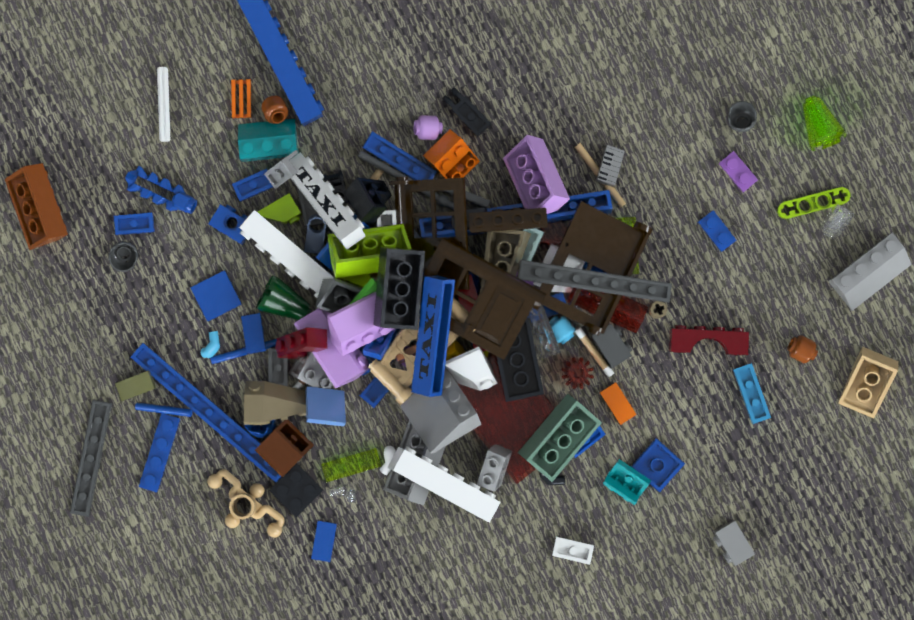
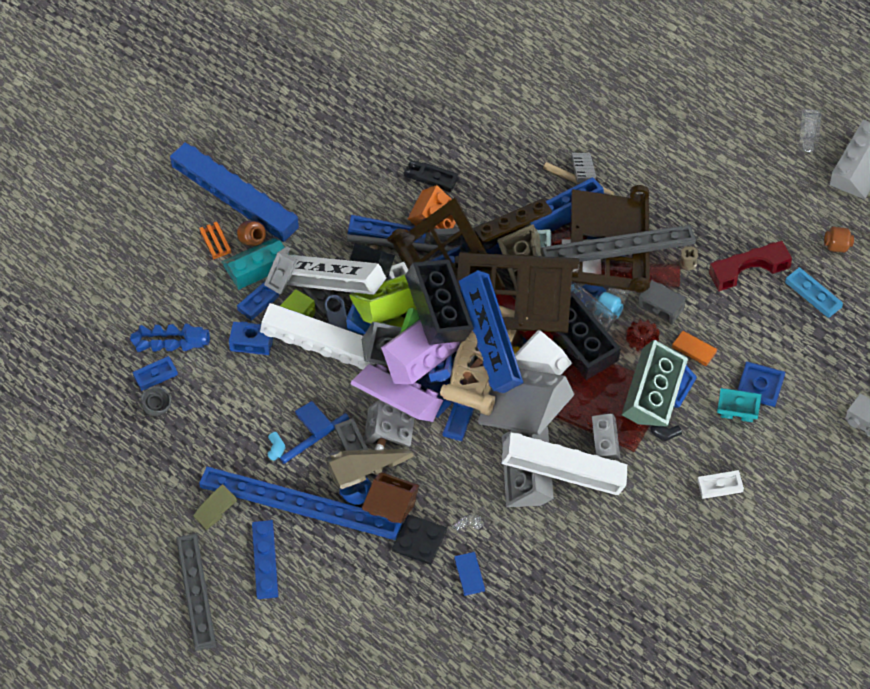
camera: 20 degrees left, 30 degrees down
(36, 206) = (50, 393): dark orange slope -> none
(163, 104) = (142, 270): white axle -> none
(163, 409) = (252, 517): blue bar -> none
(216, 296) = (262, 404): blue tile -> none
(257, 510) = (371, 576): tan wheel -> none
(282, 300) = (329, 378): dark green cone -> none
(300, 342) = (371, 383): dark red arch -> none
(325, 406) = (414, 448): medium blue tile -> none
(351, 465) = (463, 496): clear neon green tile -> none
(389, 452) = (501, 475): white arm -> none
(427, 127) = (401, 198): lavender head -> none
(535, 175) = (515, 189): lavender slope -> none
(594, 352) = (649, 314): tan bar -> none
(717, 231) = (708, 183): blue plate -> none
(738, 171) = (700, 133): medium lavender plate -> none
(747, 112) = (680, 85): dark grey hair -> none
(813, 203) = (778, 130): lime beam -> none
(821, 124) = (754, 70): clear neon green cone -> none

